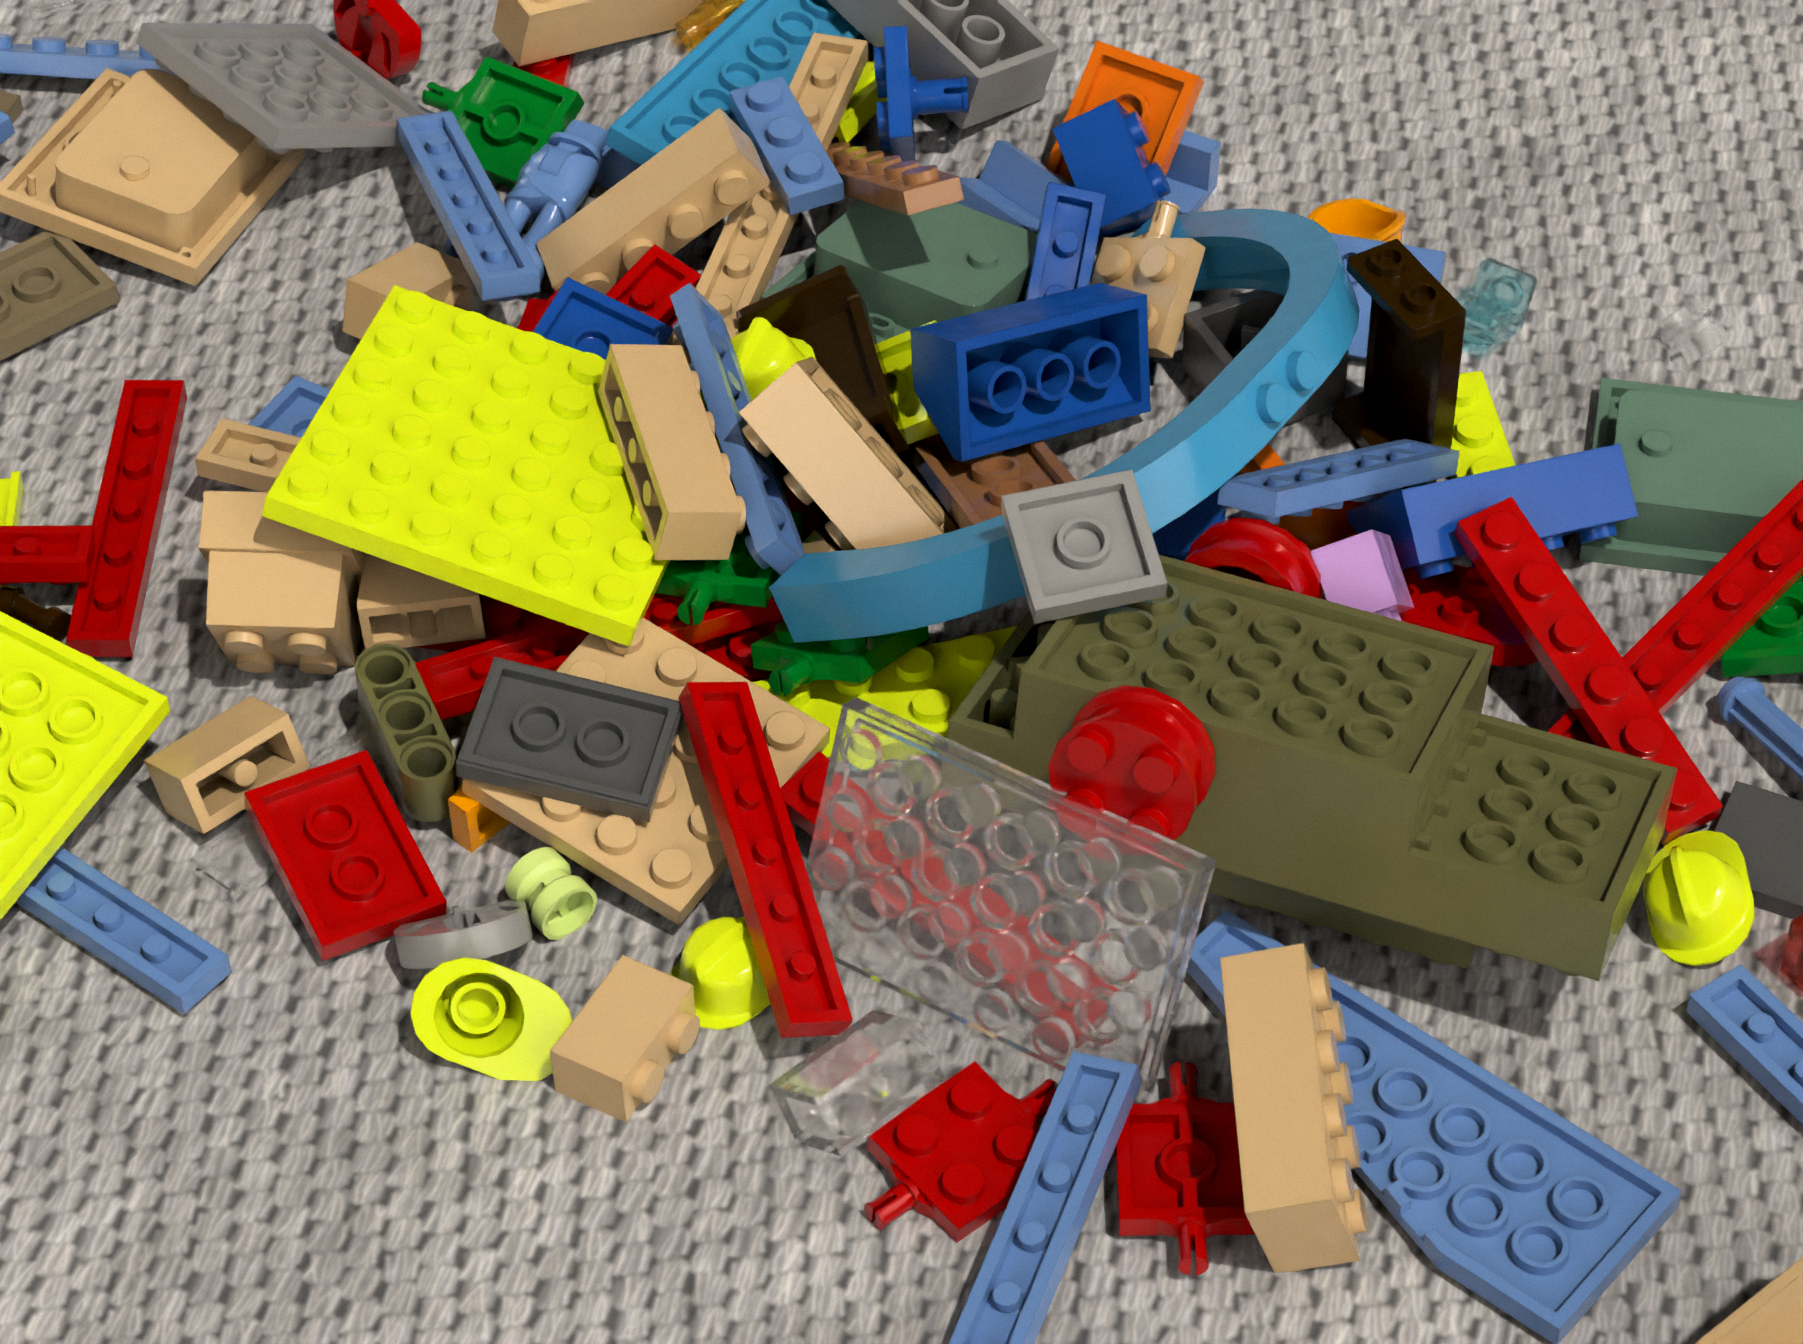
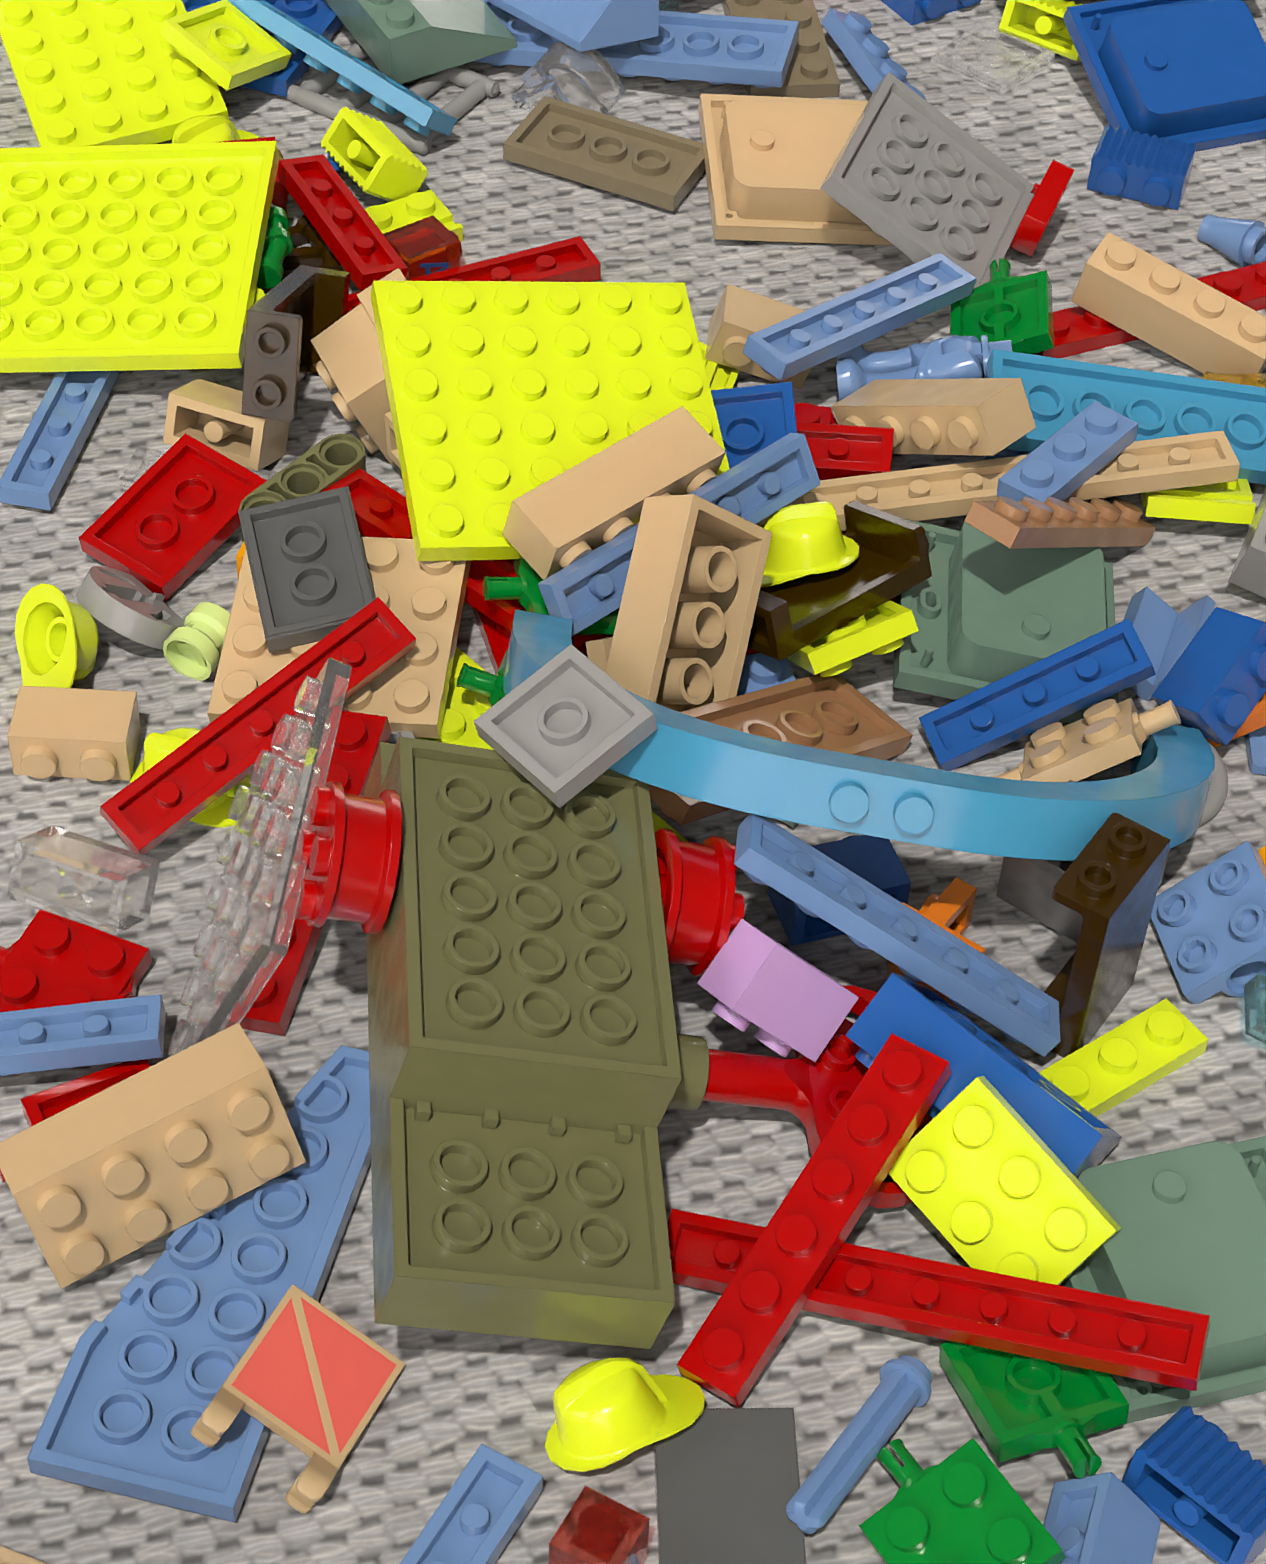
camera: 60 degrees right, 0 degrees up
(50, 499) = (426, 247): none -> clear red brick
(197, 654) = (281, 336): none -> dark brown panel
(907, 96) = (1196, 513): blue plate -> none
(1034, 369) = (913, 692): blue slope -> none
(1579, 1106) = (308, 1383): none -> flag
(1624, 541) = (1000, 1190): none -> neon yellow plate

